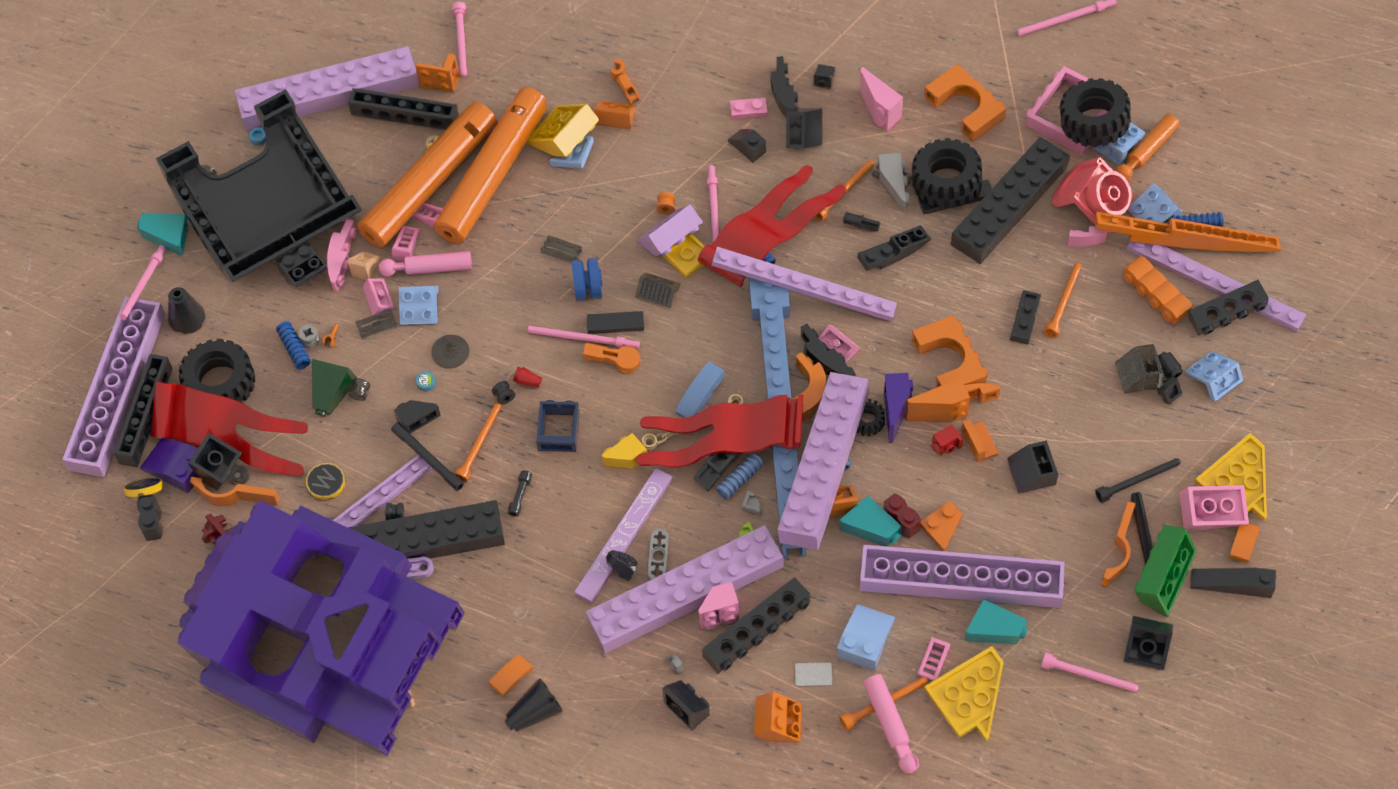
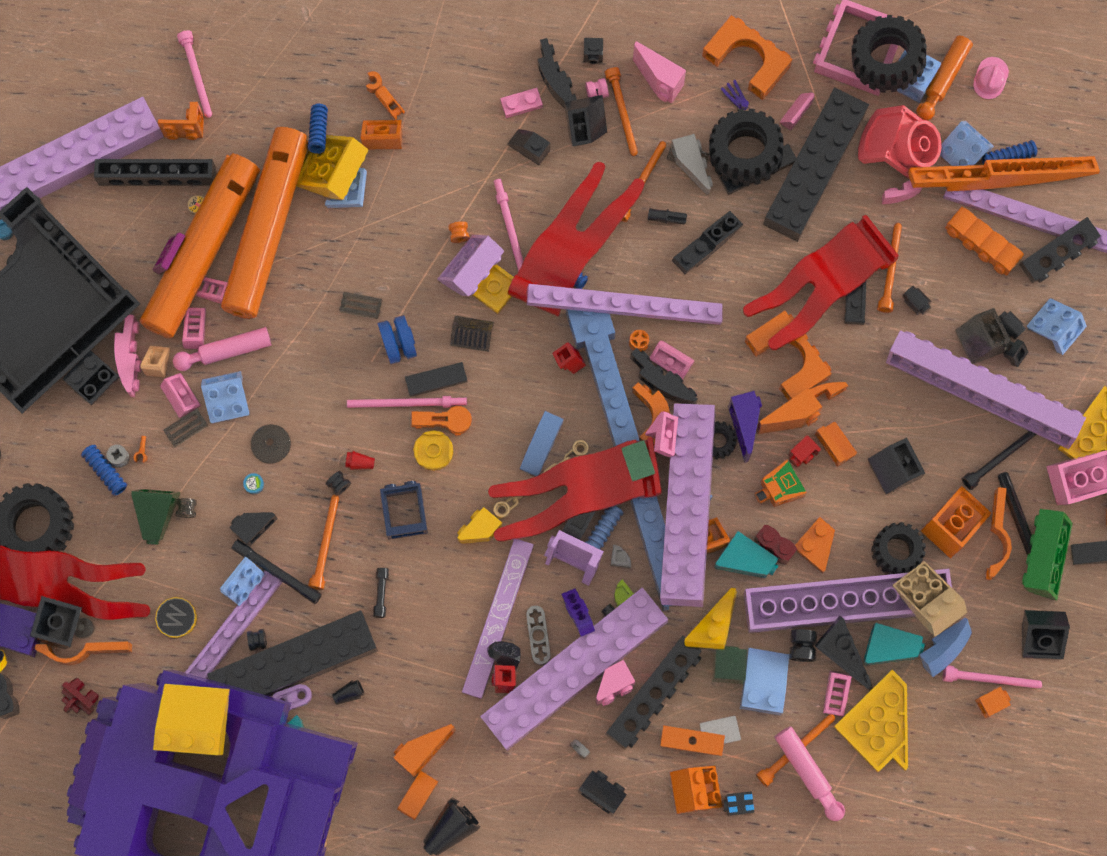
camera: 15 degrees left, 15 degrees up
(313, 540) = (192, 720): none -> yellow slope
(392, 456) = (242, 581): none -> light blue bracket
(398, 174) = (168, 253): none -> magenta tile
(468, 573) = (351, 691): none -> black cone
(525, 630) = (419, 751): none -> orange slope
(558, 97) = (317, 128): none -> blue piece
(598, 382) = (433, 450): none -> yellow tile
(615, 583) = (503, 678): none -> red brick
(699, 537) = (578, 612): none -> dark purple piece
(708, 488) = (575, 554): none -> lavender panel
(742, 322) = (569, 358): none -> red brick
(773, 670) = (706, 742): none -> orange tile
(784, 412) = (638, 460): none -> clear green sticker
(812, 316) = (639, 336): none -> orange wheel
(814, 392) = (664, 432): none -> bright pink slope
(816, 739) = (738, 804): none -> black brick
(824, 104) = (597, 88): none -> bright pink wheel
(827, 574) = (714, 627): none -> yellow wing
(834, 612) = (730, 665): none -> clear green head
(837, 98) = (613, 76): none -> orange piece
(909, 608) = (803, 645): none -> black wheel
(918, 466) = (781, 486): none -> torso
(944, 614) = (840, 648): none -> black wing
(952, 136) = (739, 102): none -> dark purple piece
(1003, 154) = (797, 110): none -> bright pink slope
(1005, 291) = (833, 271): none -> red flag
(1020, 526) = (903, 533): none -> black tyre
(1040, 583) = (930, 598): none -> tan slope
(1049, 635) = (946, 647): none -> medium blue slope
(1080, 527) = (956, 522): none -> orange slope
(1083, 330) = (917, 300): none -> black brick
(1085, 693) = (993, 702): none -> orange brick
(1131, 413) = (985, 389): none -> lavender brick
(1192, 156) = (990, 78): none -> bright pink piece

